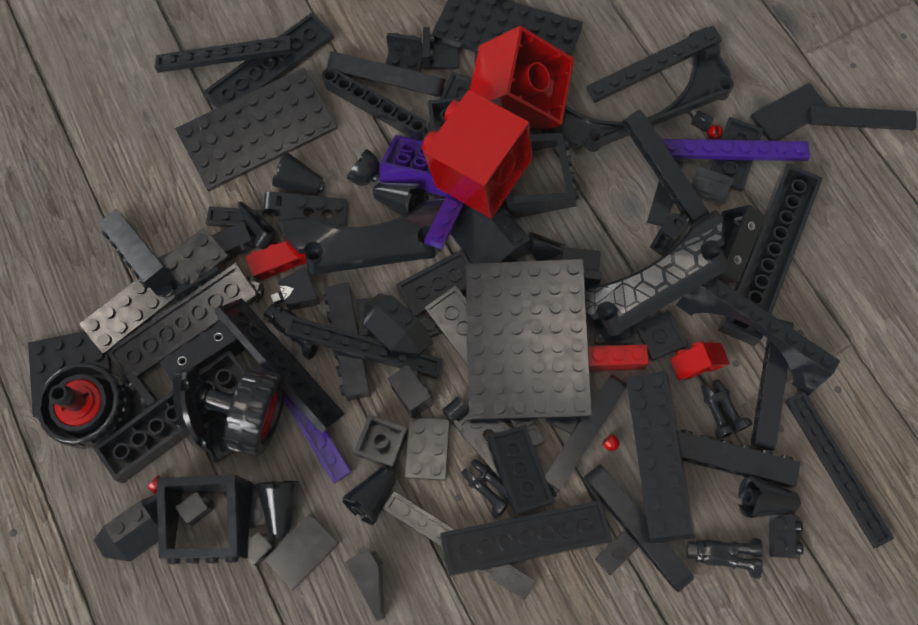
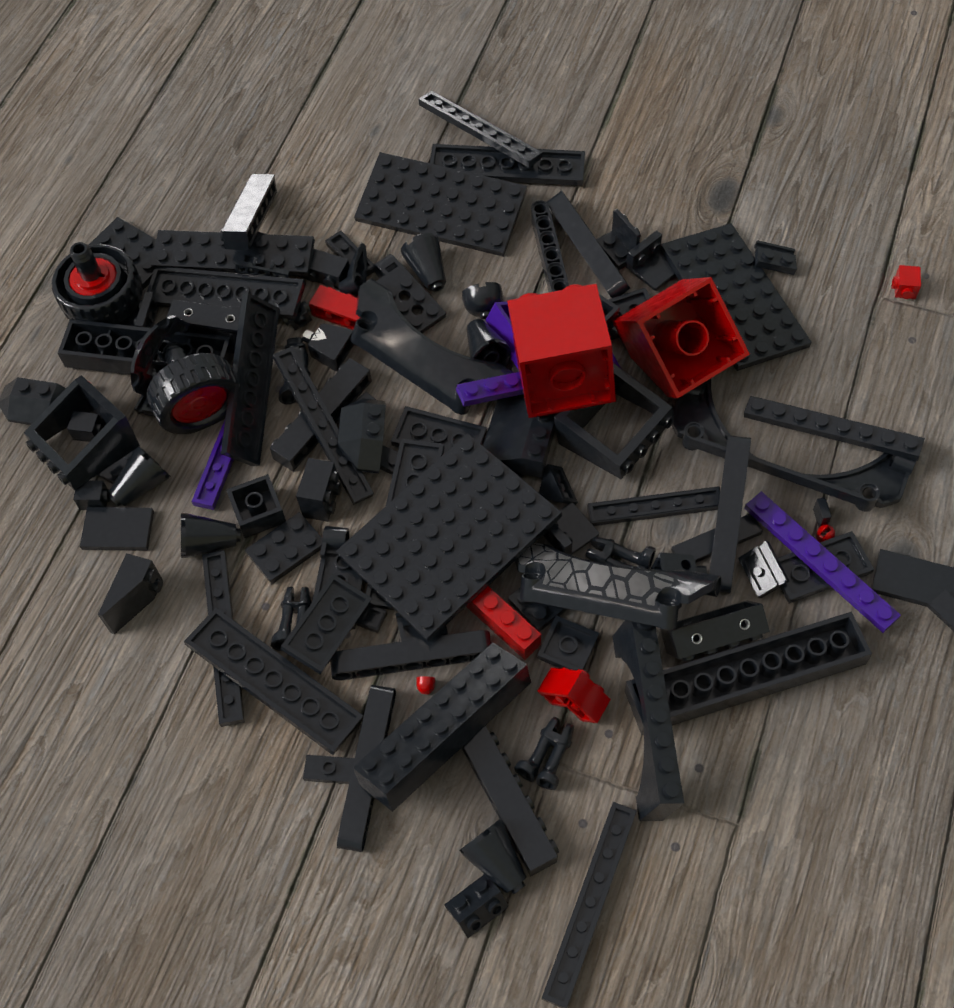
camera: 50 degrees right, 10 degrees down
(609, 204) = (654, 506): none -> black tile
(643, 241) = (609, 547): none -> black piece
(726, 554) = (410, 862): black piece -> none
(770, 397) = (605, 784): black beam -> none

